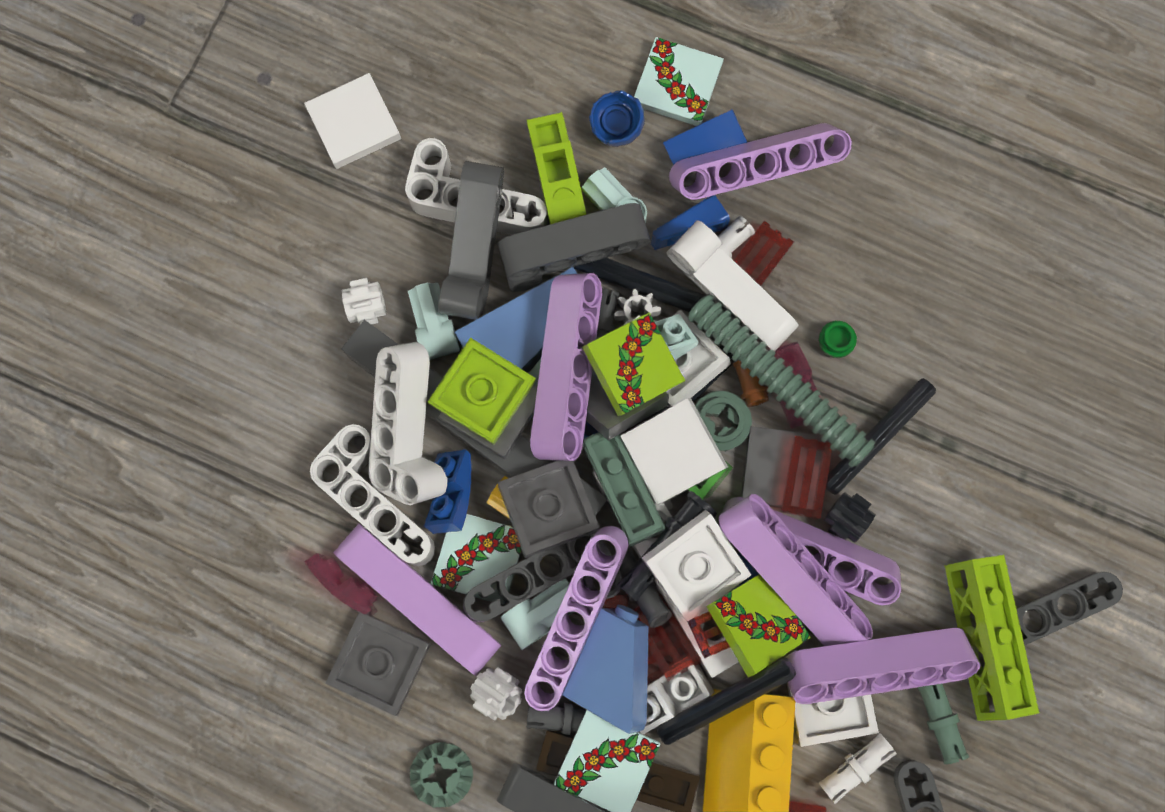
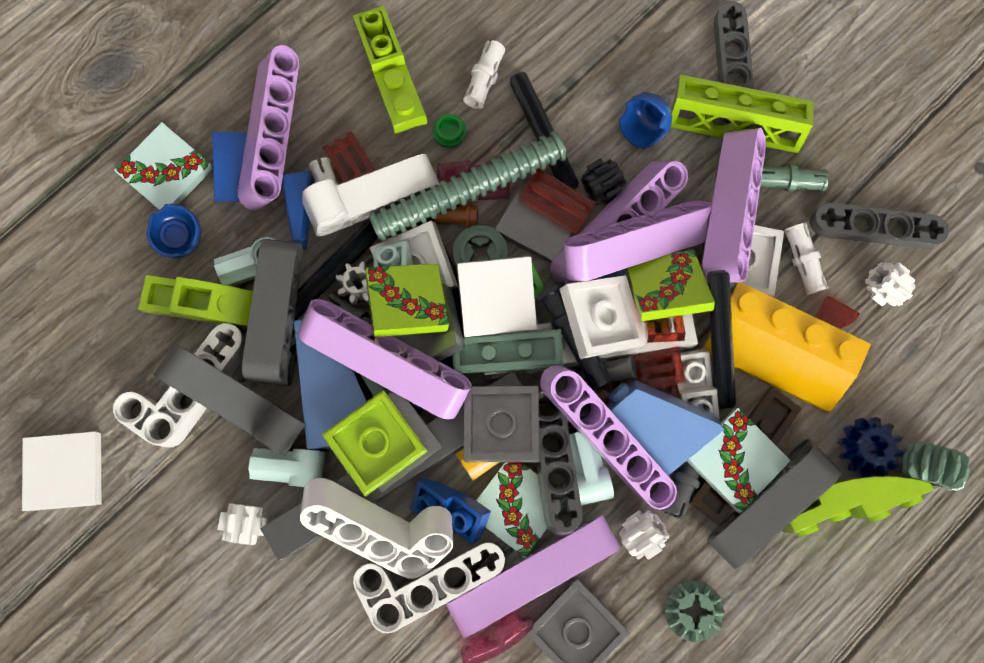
camera: 75 degrees left, 0 degrees up
(875, 252) = (389, 69): none -> lime slope
(915, 350) = (484, 74): none -> white pin
(937, 537) = (645, 120): none -> blue hair

